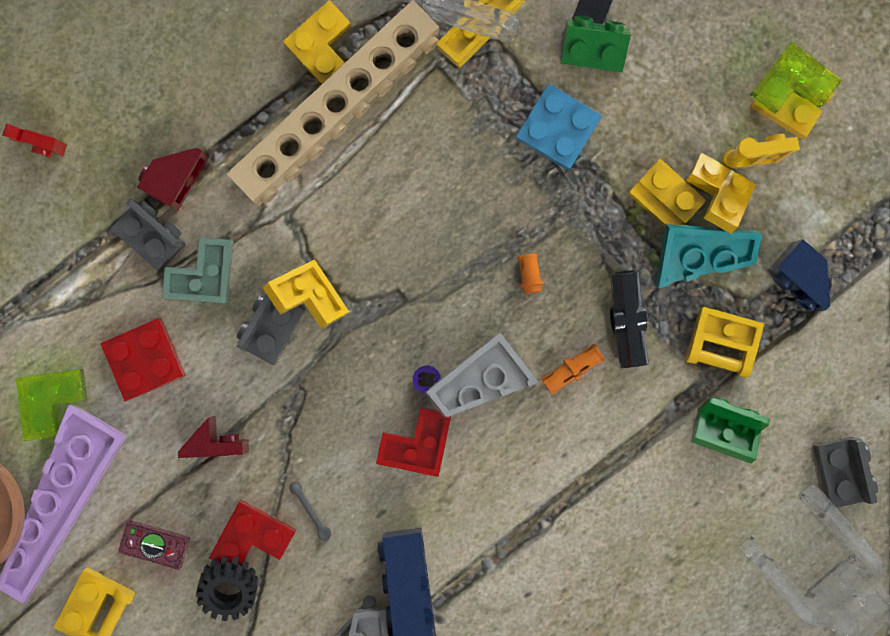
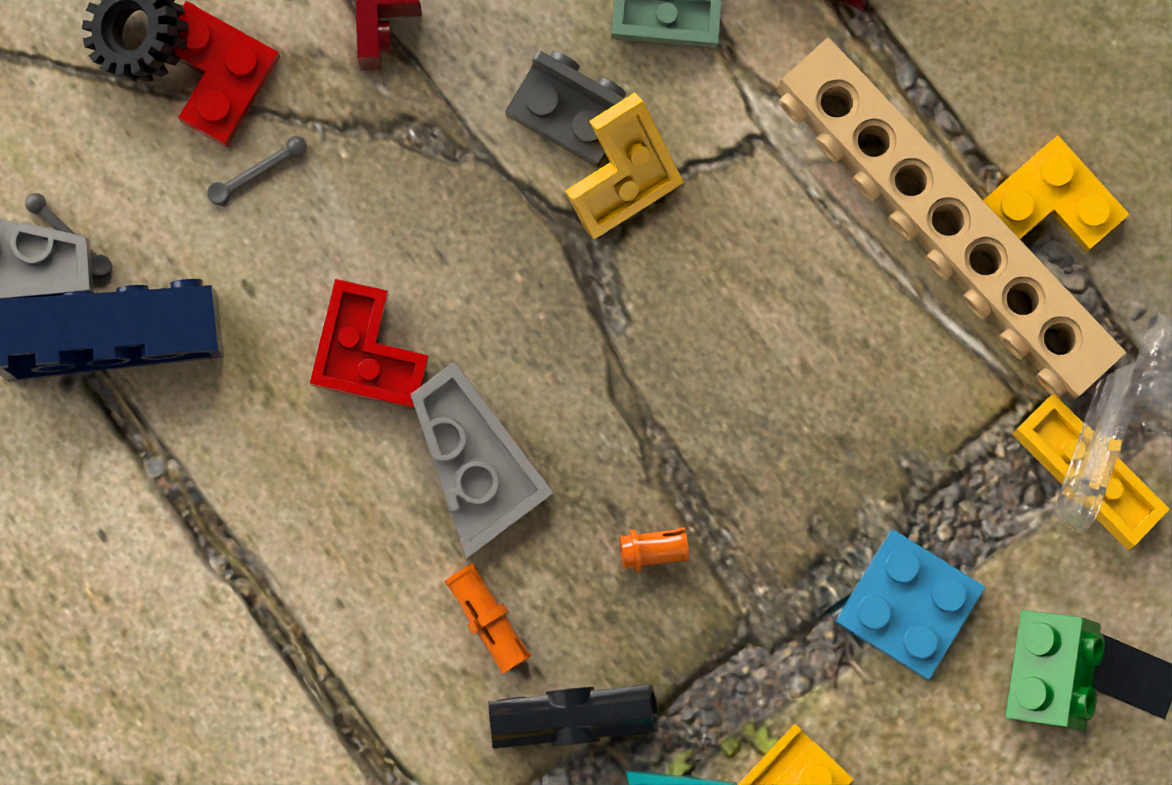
camera: 85 degrees right, 5 degrees down
(427, 369) = (492, 369): dark purple bush -> none

